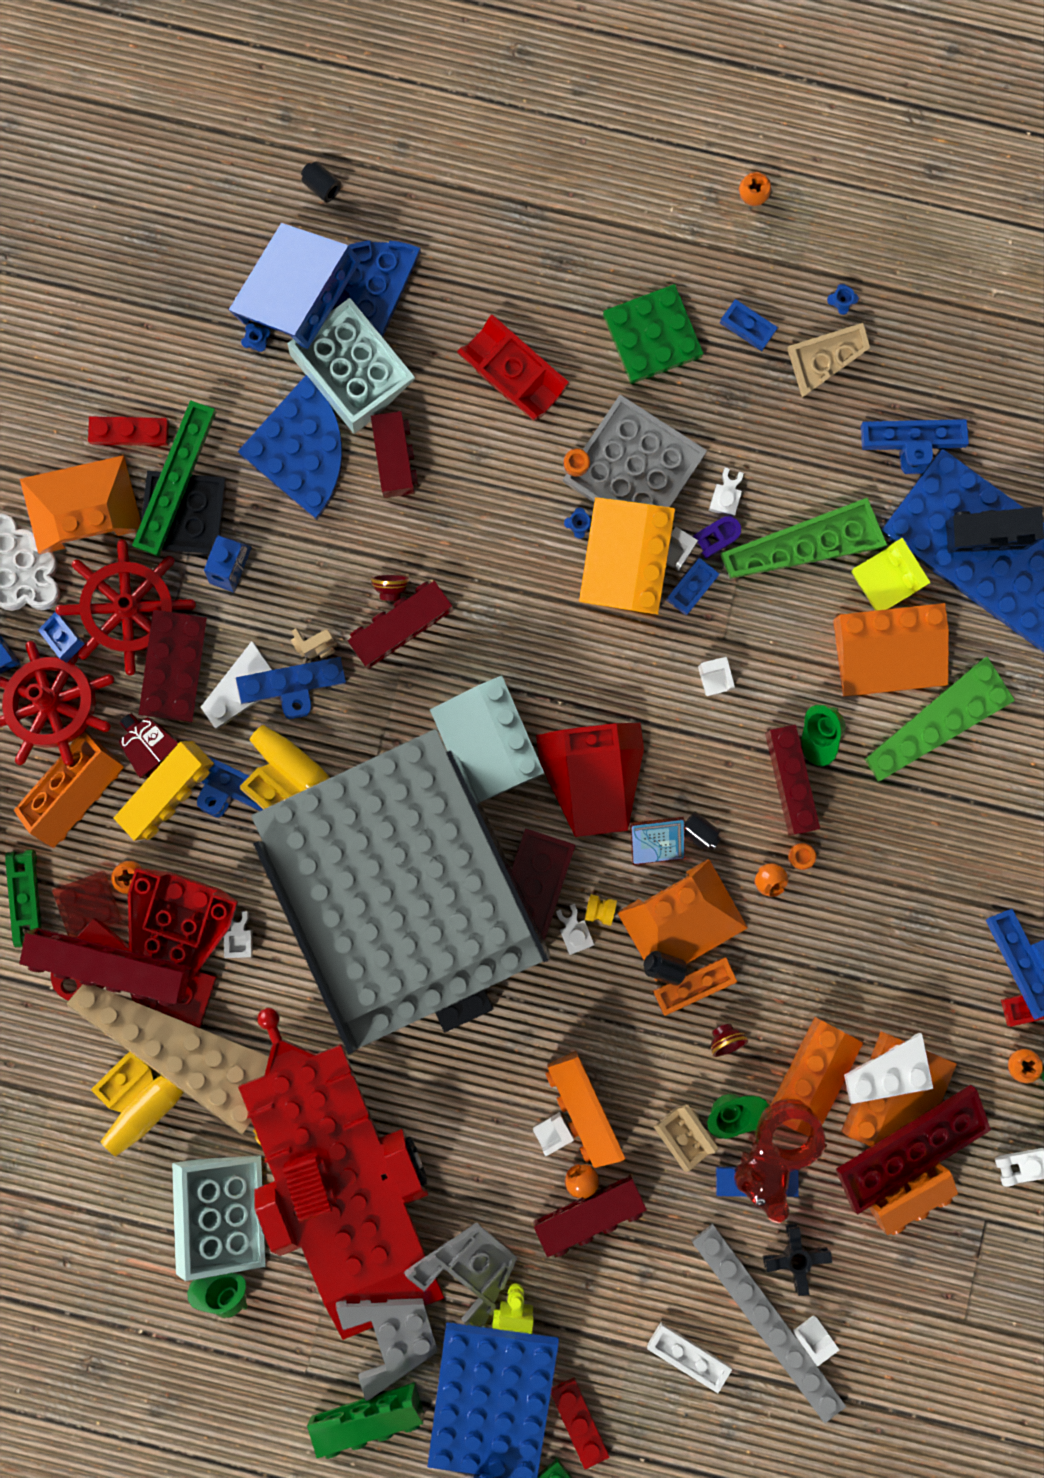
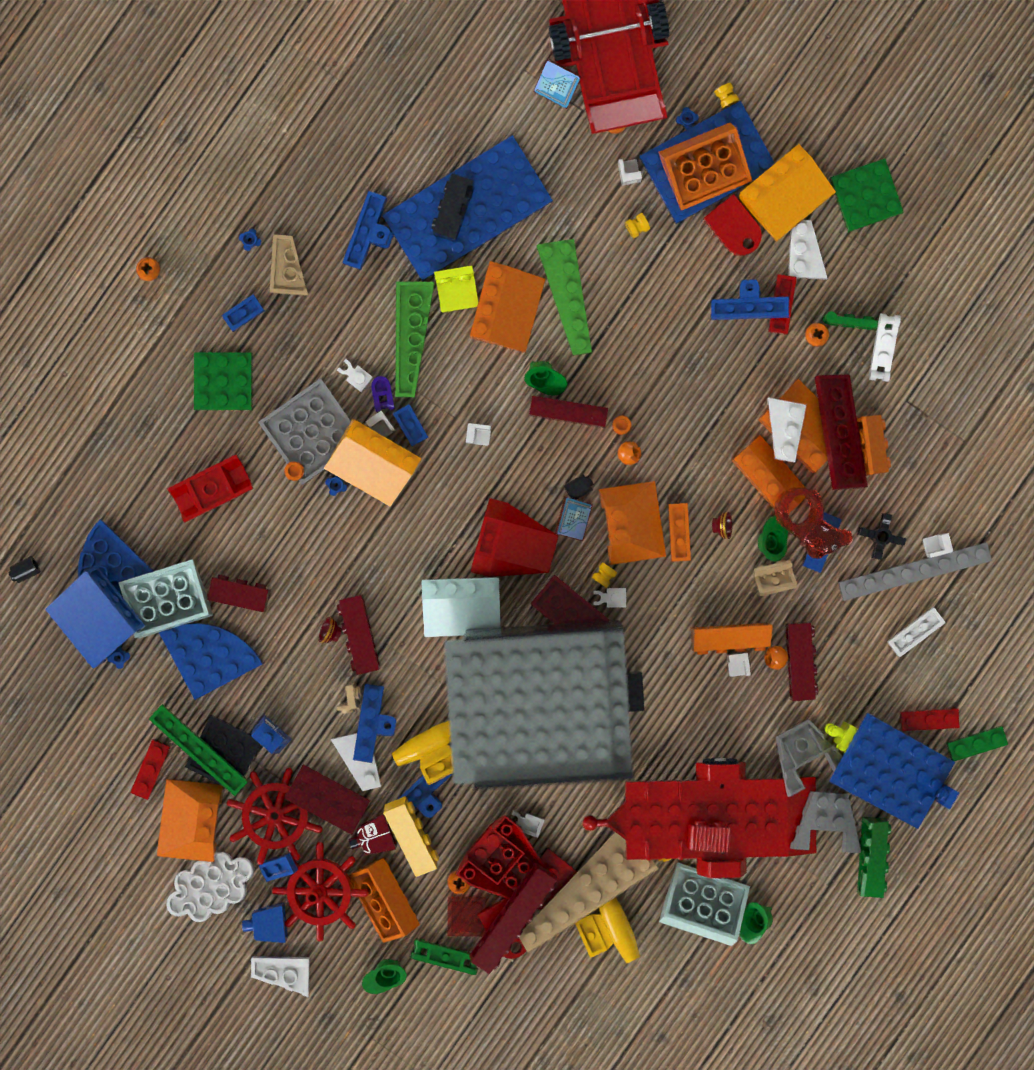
camera: 65 degrees left, 5 degrees up
(665, 967) = (659, 548): black brick -> none

